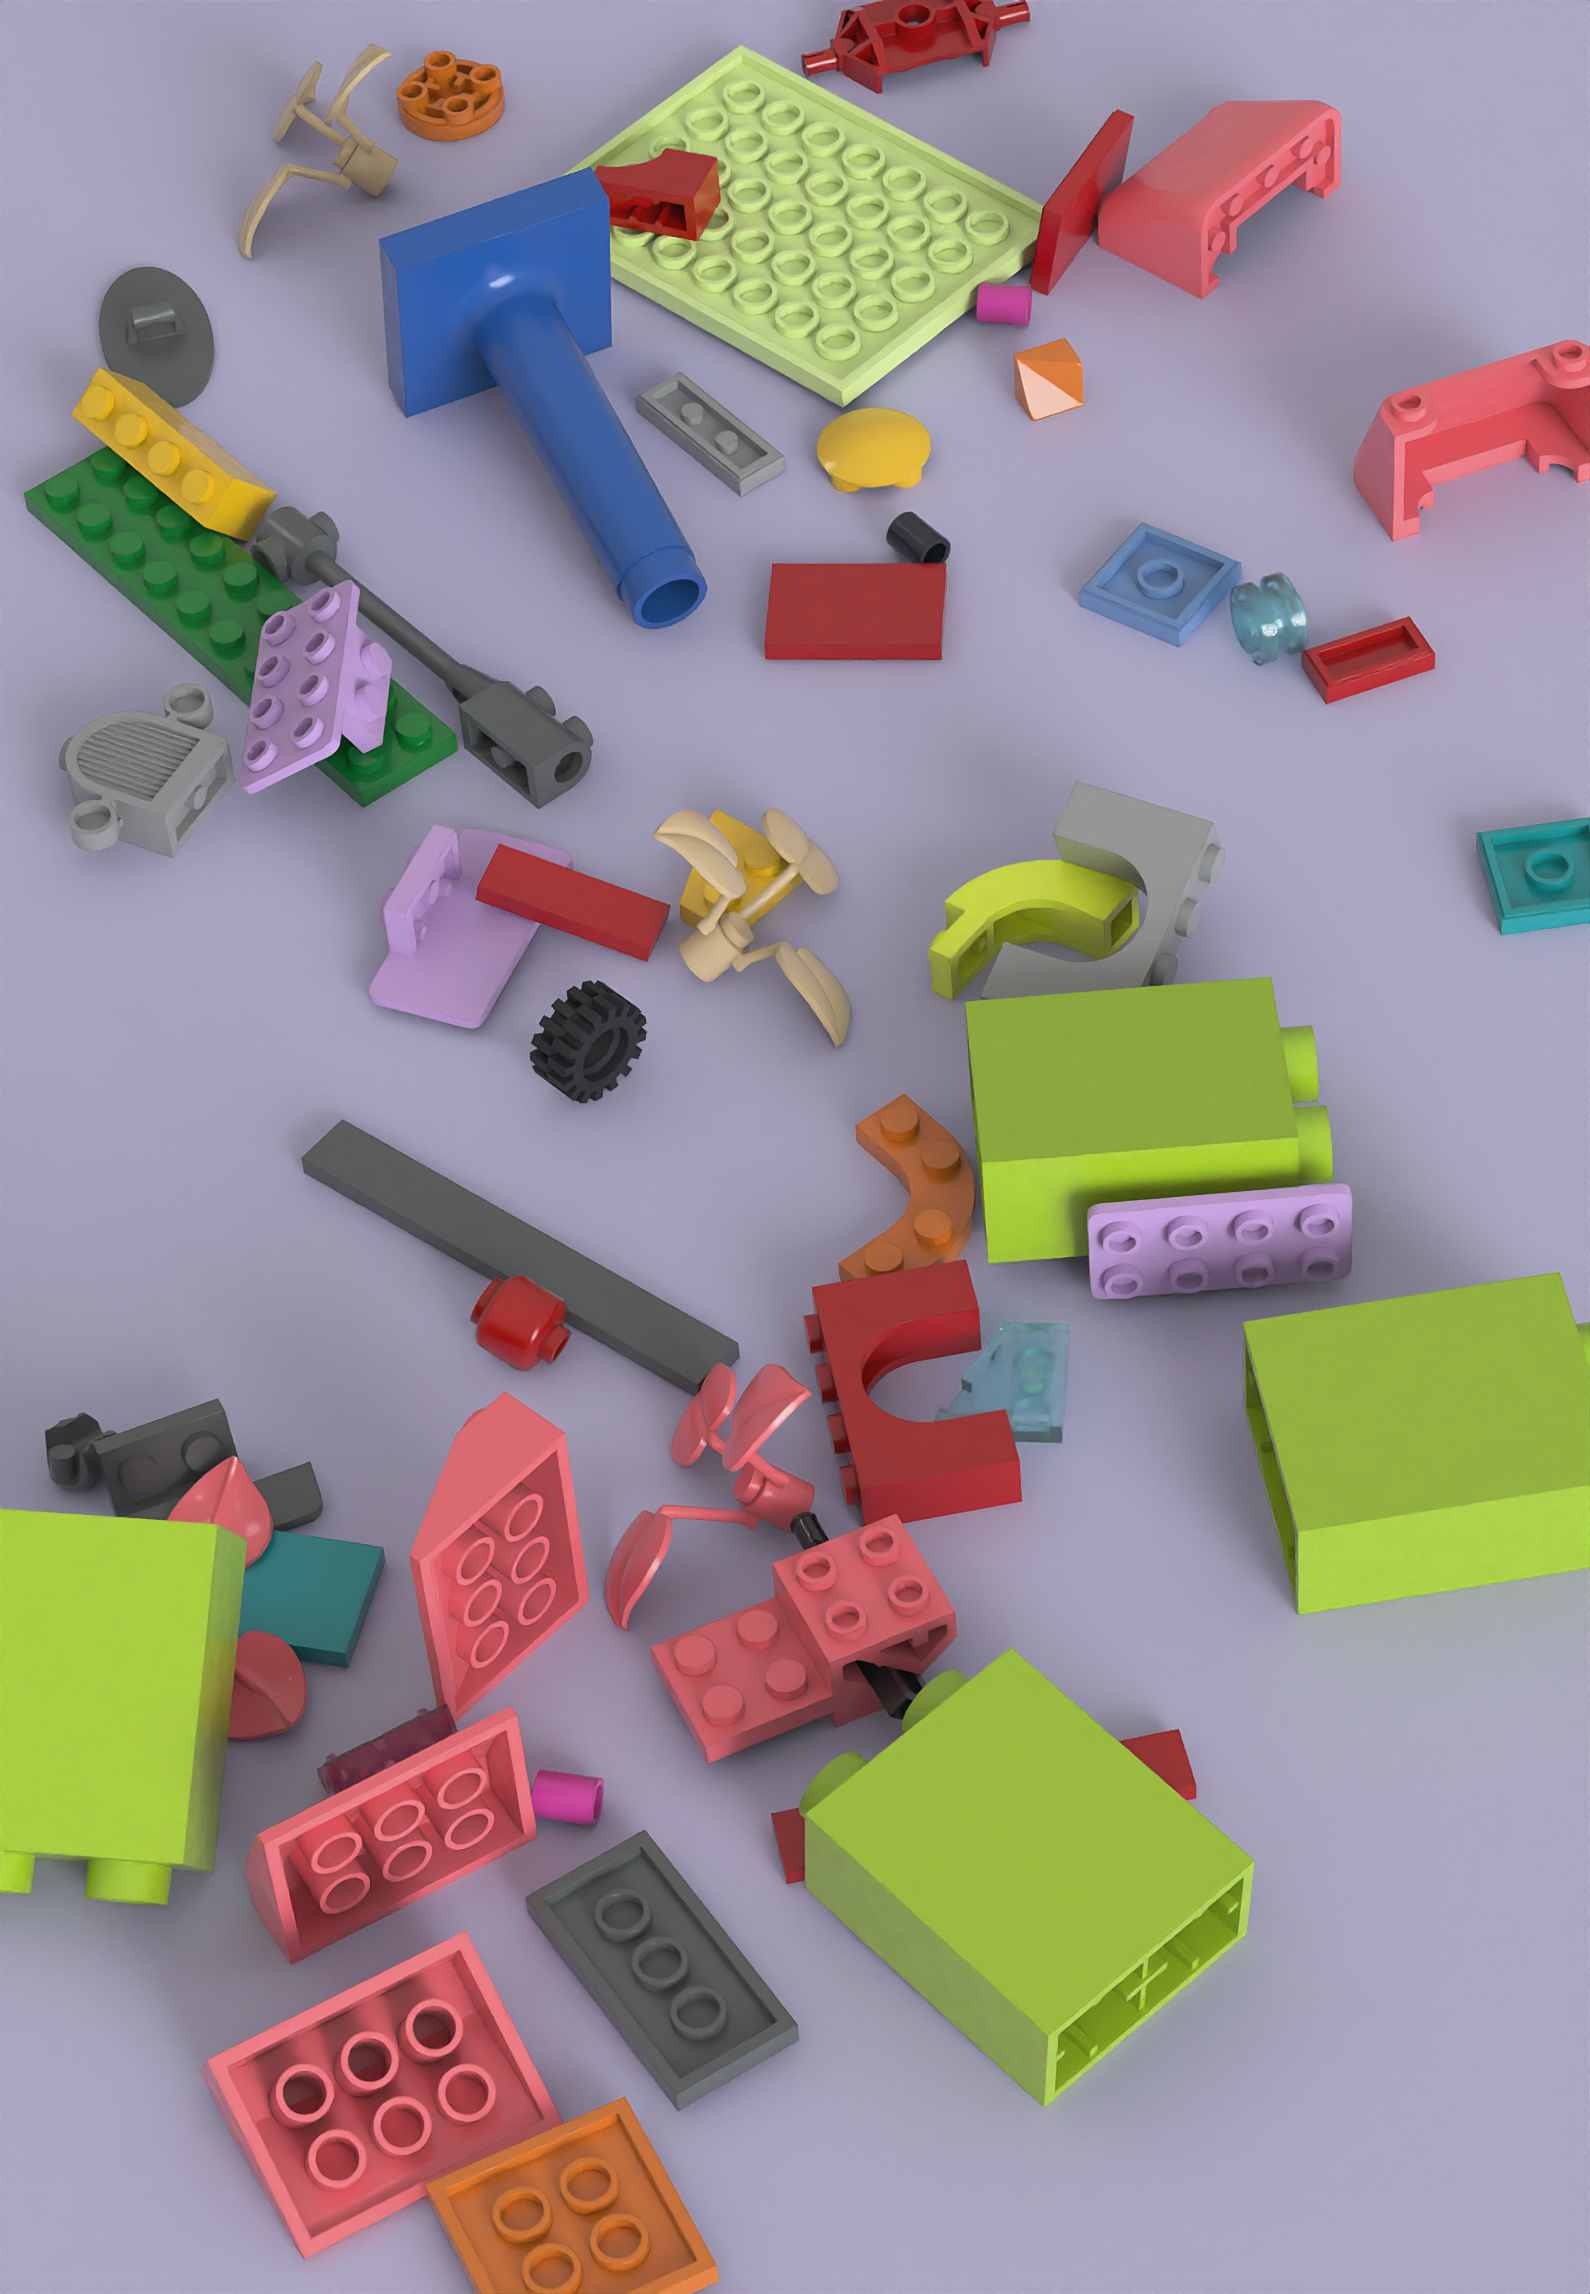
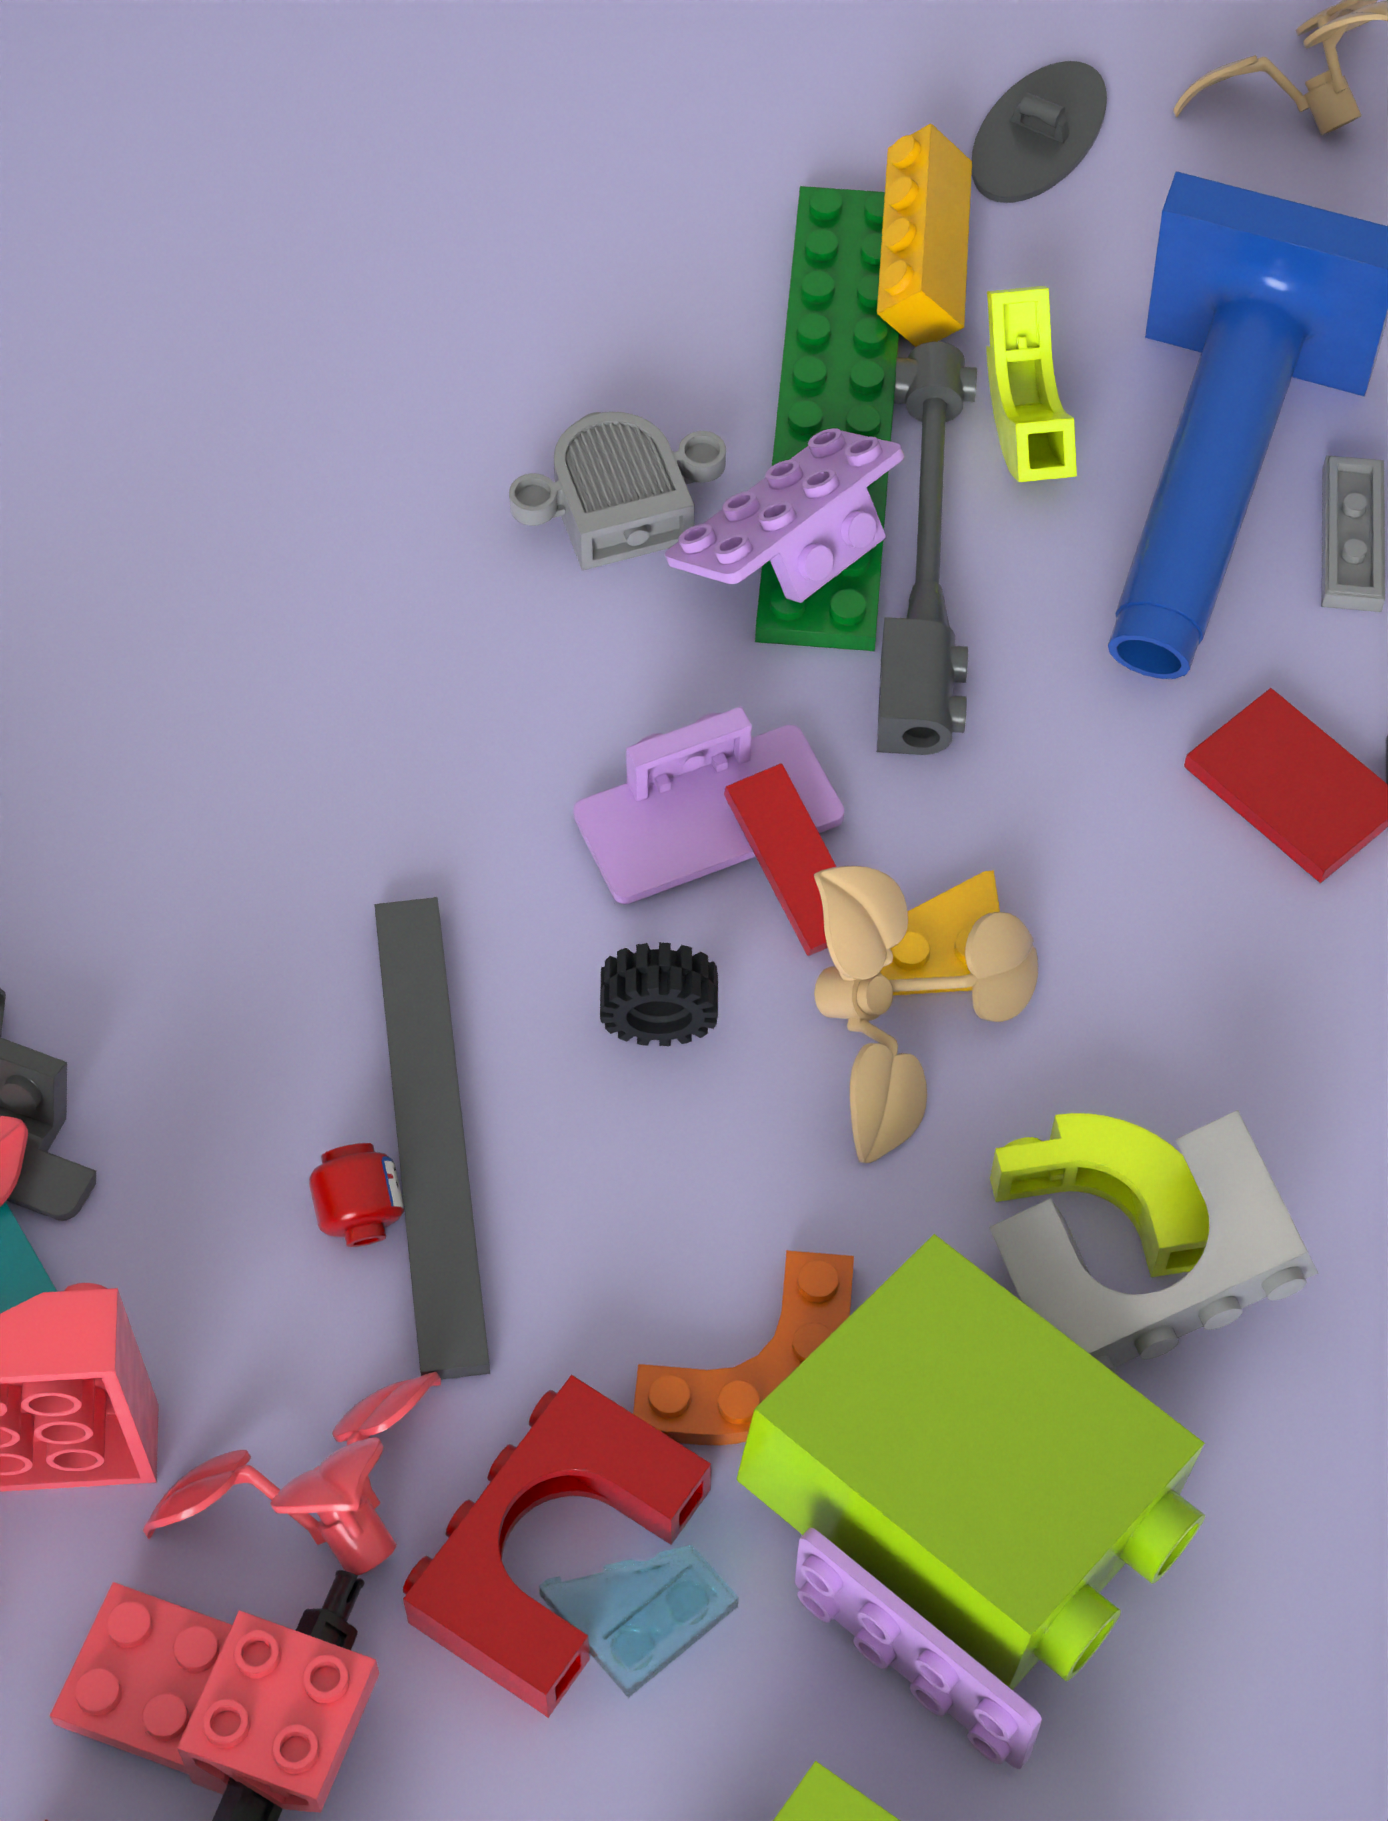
camera: 40 degrees right, 10 degrees up
(373, 508) = (1026, 406): none -> neon yellow arch

